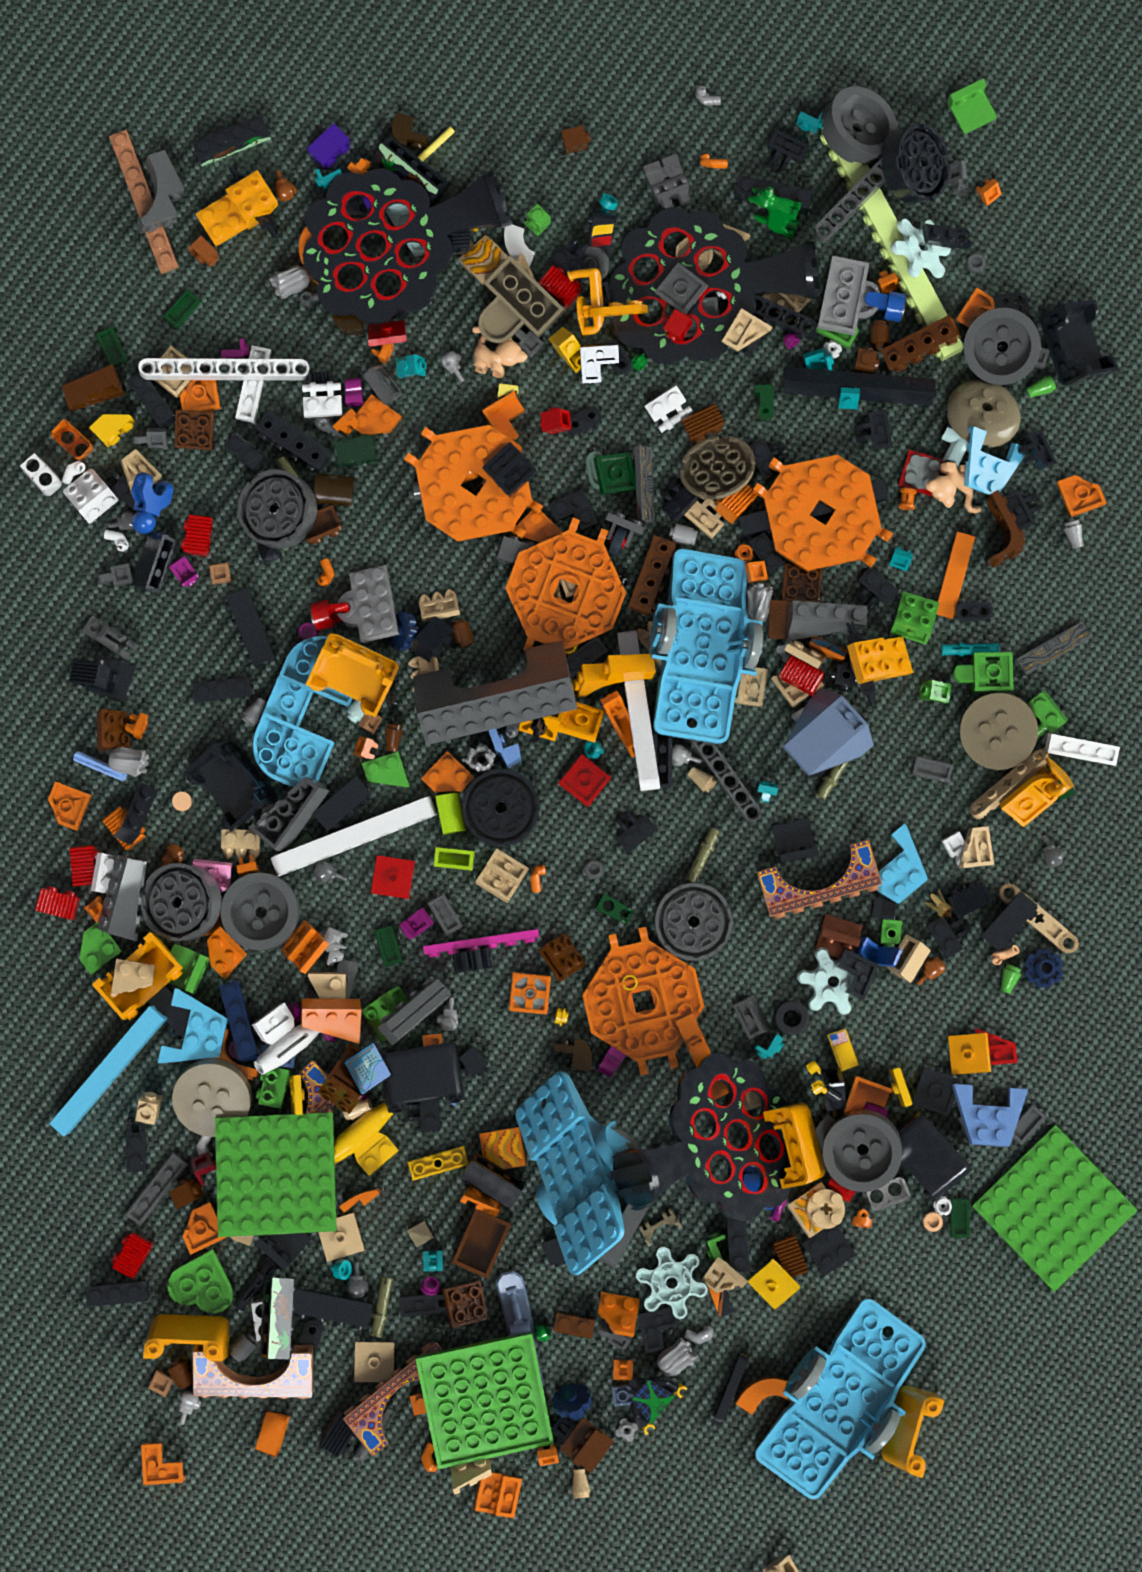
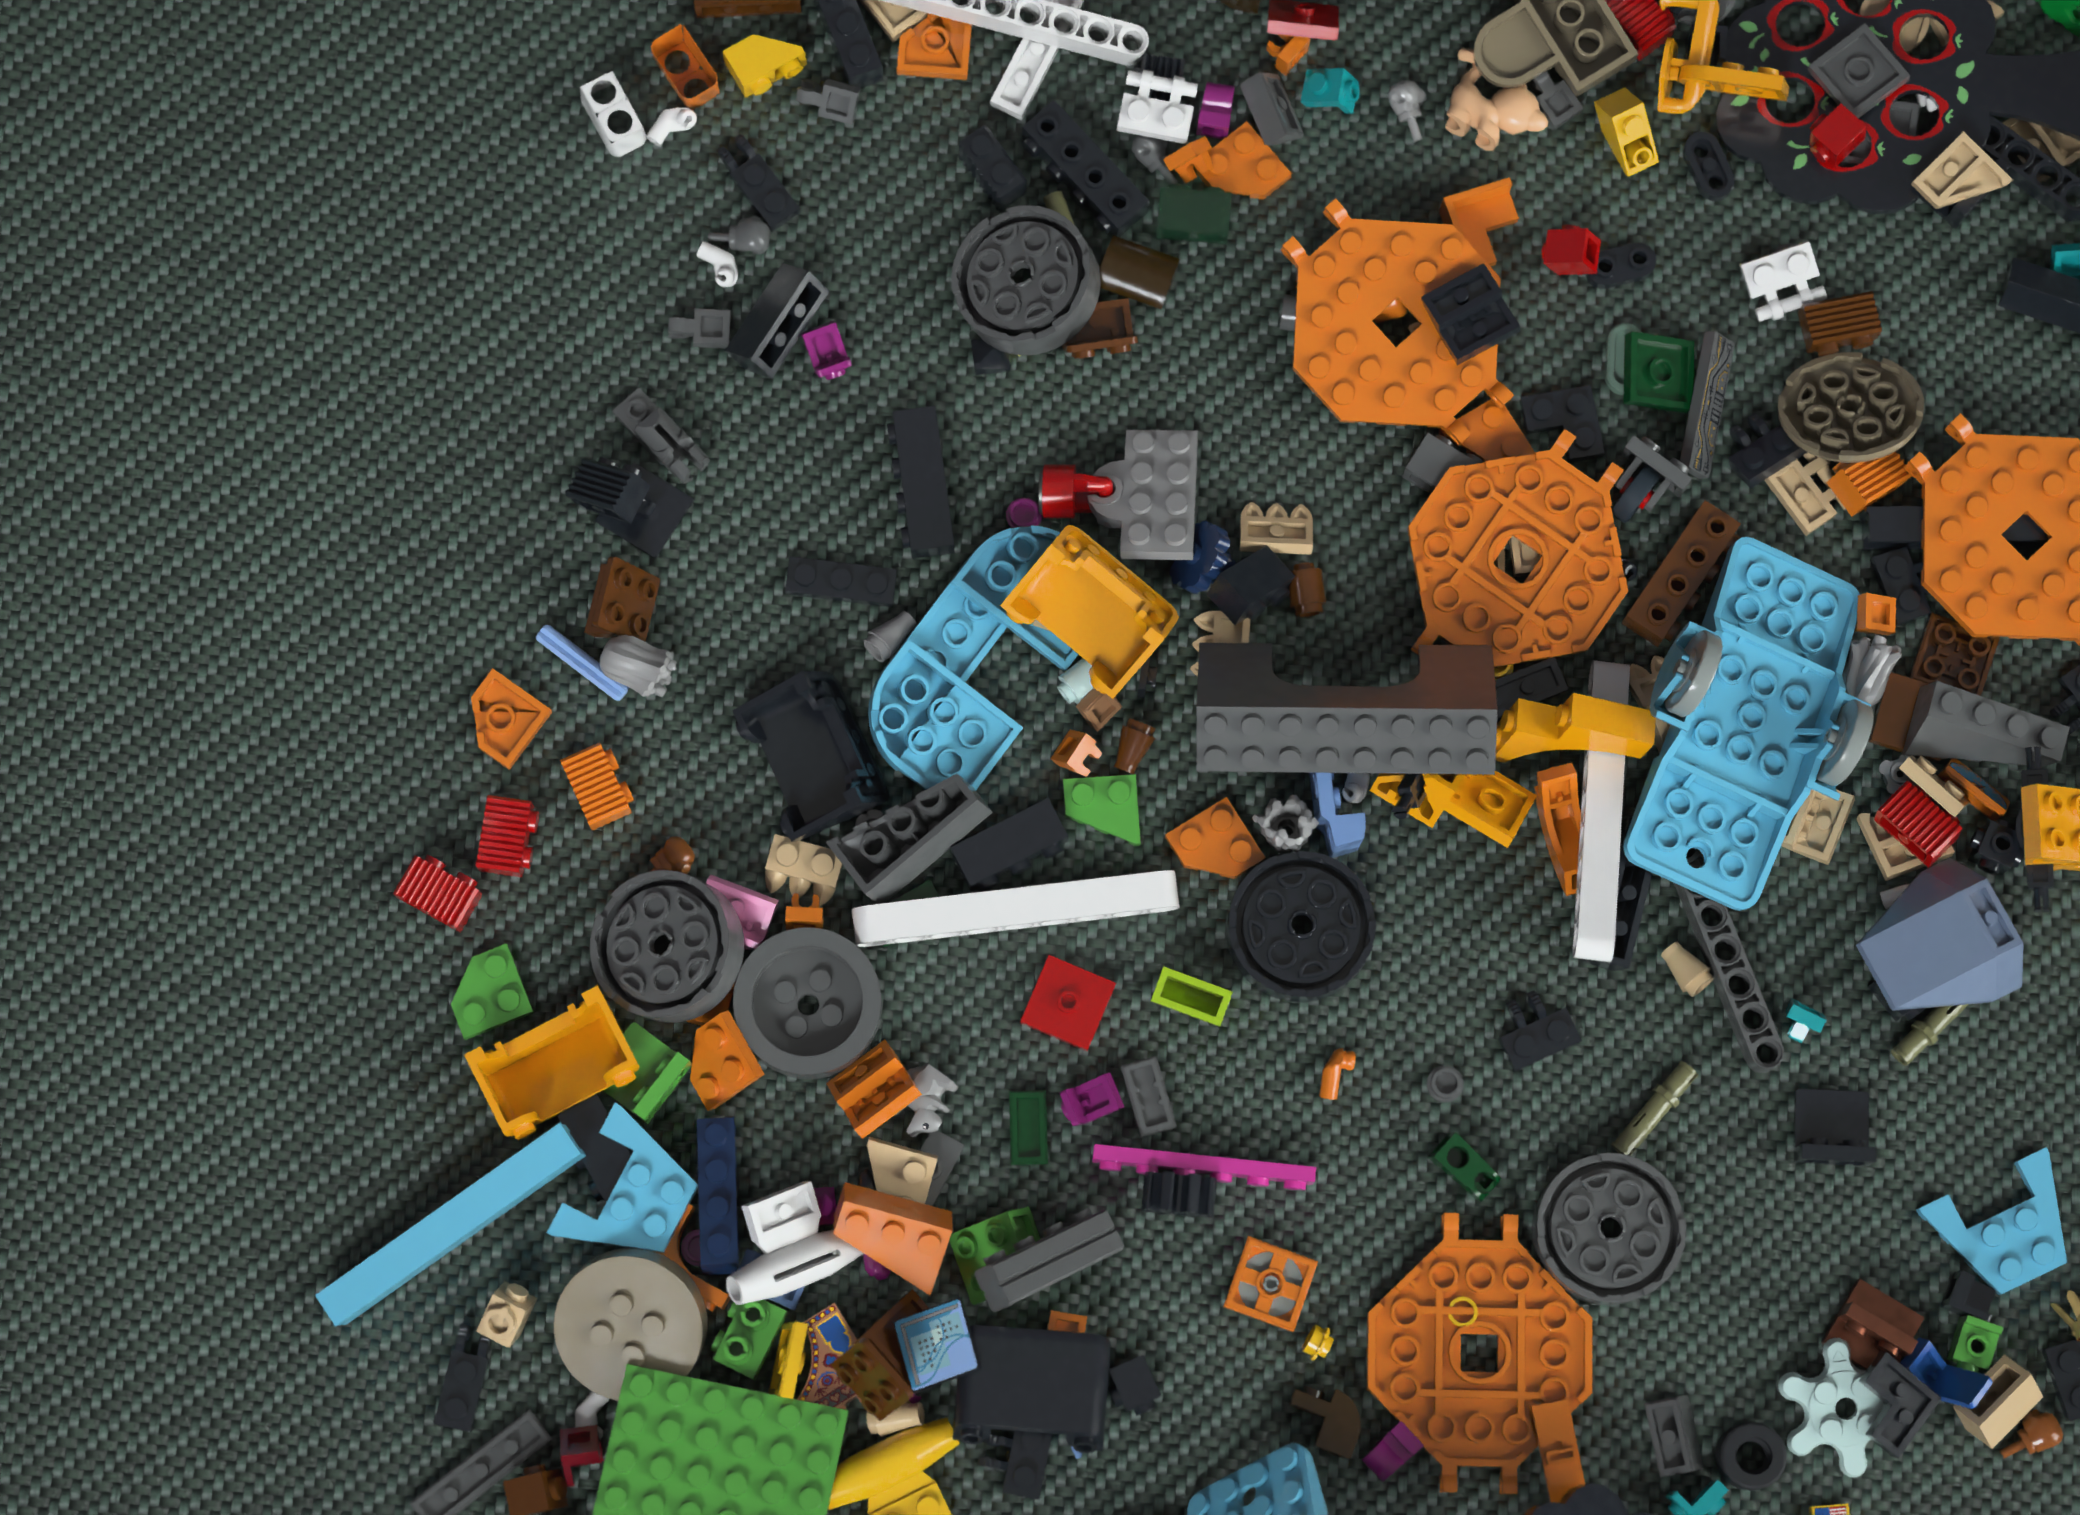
camera: 10 degrees right, 5 degrees down
(90, 495) = (692, 173): white bracket -> none
(95, 908) = (509, 922): orange tile -> none
(102, 872) = (539, 859): white plate -> none
(123, 897) = (562, 912): dark grey wedge -> none
(131, 976) = (539, 1060): tan wing -> none
(135, 813) = (626, 763): black brick -> none
(136, 463) = (791, 156): tan wing -> none
(139, 727) = (673, 607): orange tile -> none
(149, 501) = (796, 209): blue piece -> none
(182, 801) = (715, 765): light nougat tile -> none
(194, 429) = (910, 103): reddish brown tile -> none
(198, 535) = (868, 292): red brick -> none
(220, 573) = (890, 371): medium nougat tile -> none
(326, 871) = (946, 961): dark grey piece -> none
(328, 573) = (1087, 421): orange arm -> none
(449, 1019) = (1107, 1293): light grey piece -> none
(450, 813) = (1204, 912): lime brick -> none
(502, 875) = (1271, 1052): tan slope -> none
(505, 389) = (1495, 171): light yellow slope -> none
(562, 957) = (1346, 1232): reddish brown bracket -> none
(584, 780) = (1467, 915): red plate -> none
(593, 750) = (1498, 861): teal tile -> none
(594, 355) = (1674, 151): plate -> none
(639, 362) = (1748, 185): green plate -> none
(682, 755) = (1661, 916): light grey piece -> none
(683, 535) = (1757, 514): light grey brick -> none
(744, 548) = (1863, 567): orange plate -> none
(764, 456) = (1940, 413): black hinge -> none
(766, 402) = (1964, 312): dark green leg -> none
(783, 898) = (1789, 1228): arch -> none
(791, 340) = (2035, 215): magenta hinge -> none

